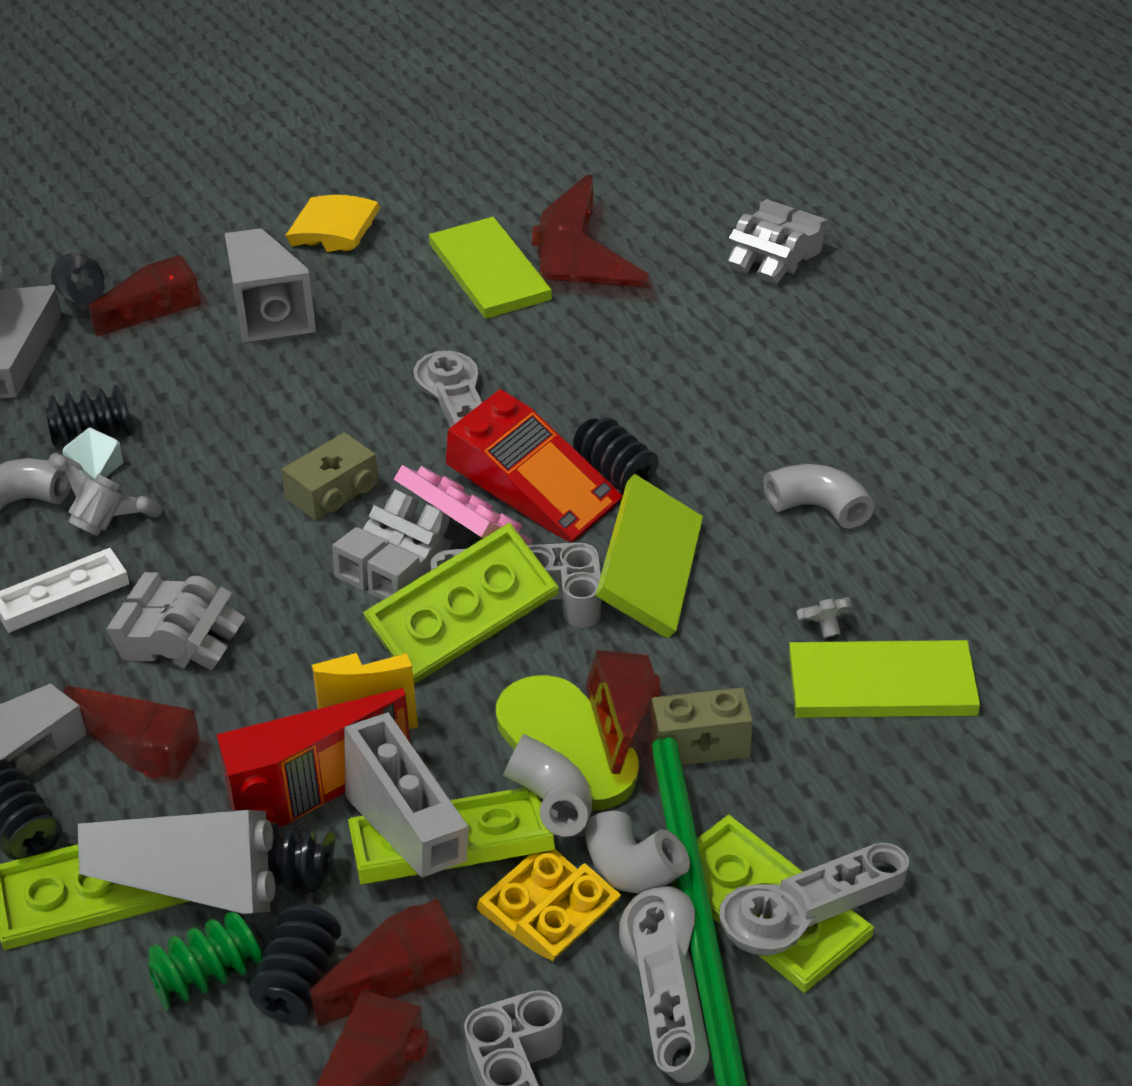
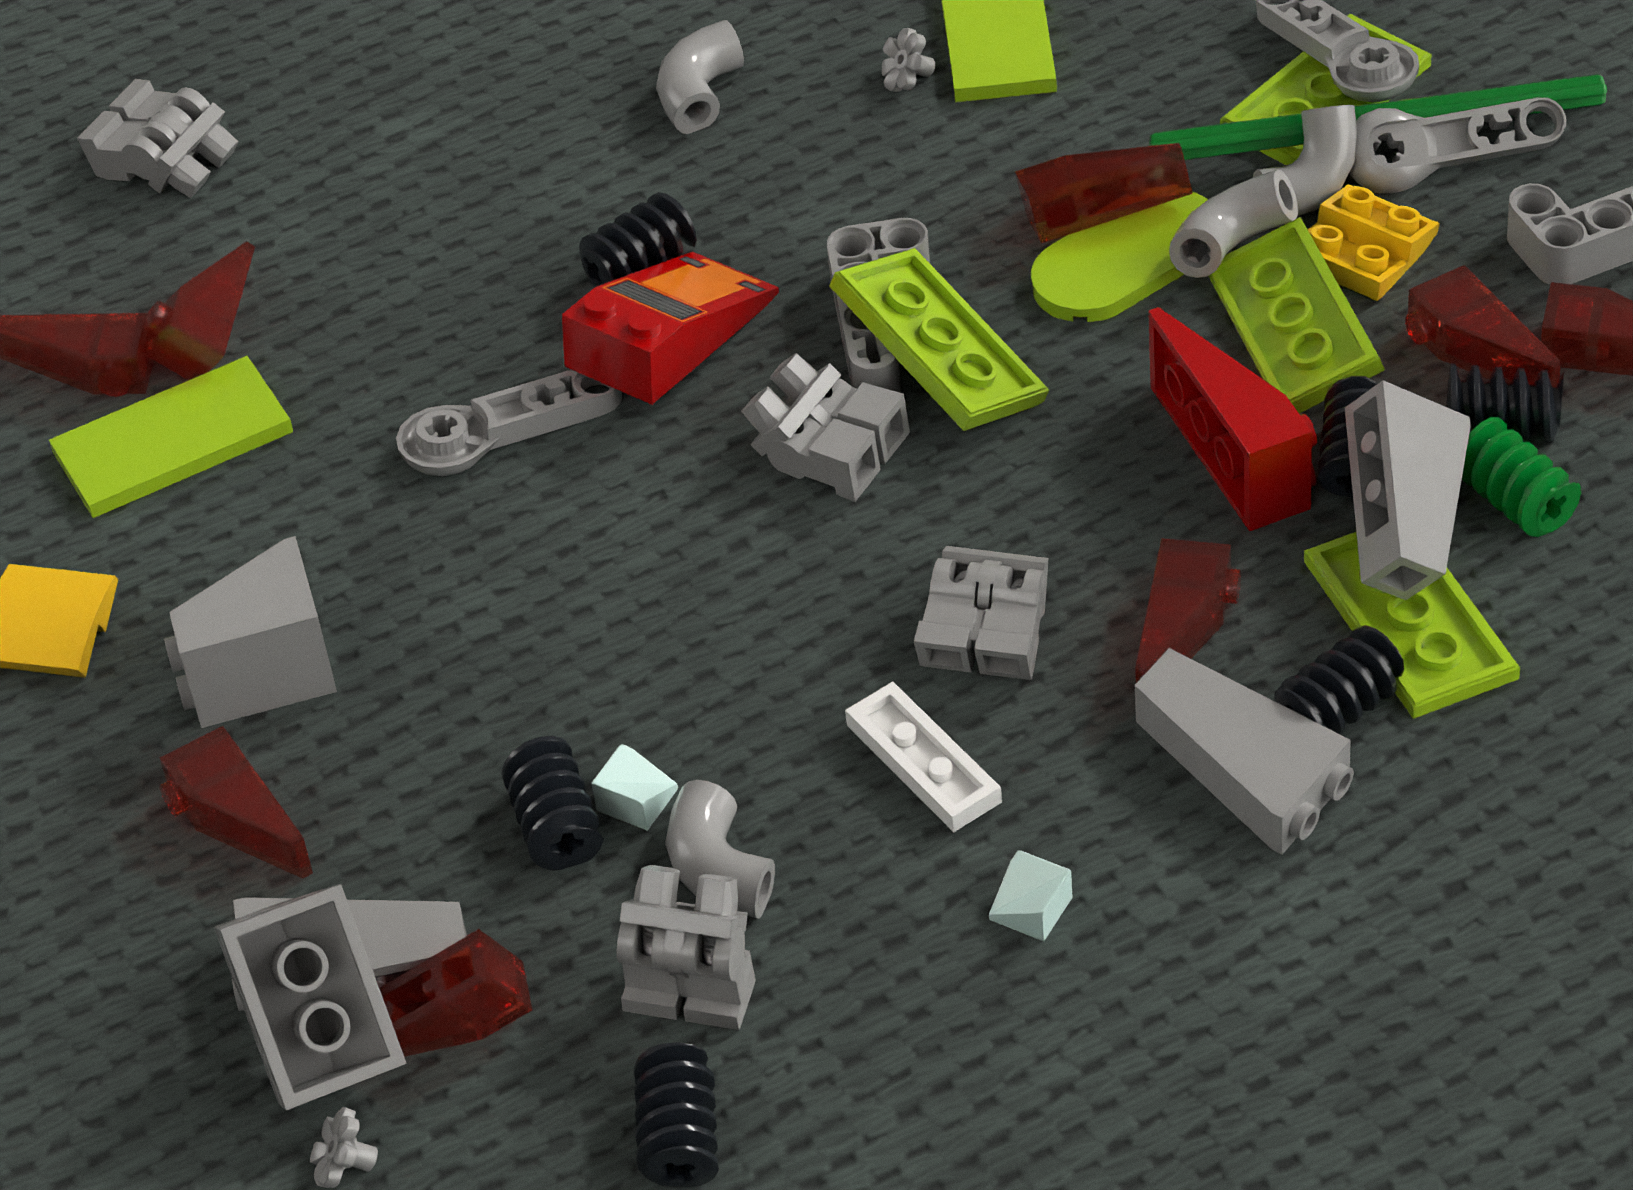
camera: 90 degrees left, 5 degrees up
(78, 292) = (221, 874): black piece -> none
(98, 499) = (753, 730): light grey piece -> none
(330, 476) = (680, 514): olive brick -> none
(349, 680) = (1113, 388): yellow slope -> none
(402, 797) = (1301, 306): light grey slope -> none
(456, 503) = (760, 358): bright pink plate -> none
(650, 556) = (828, 196): lime tile -> none
(704, 724) = (1103, 117): olive brick -> none

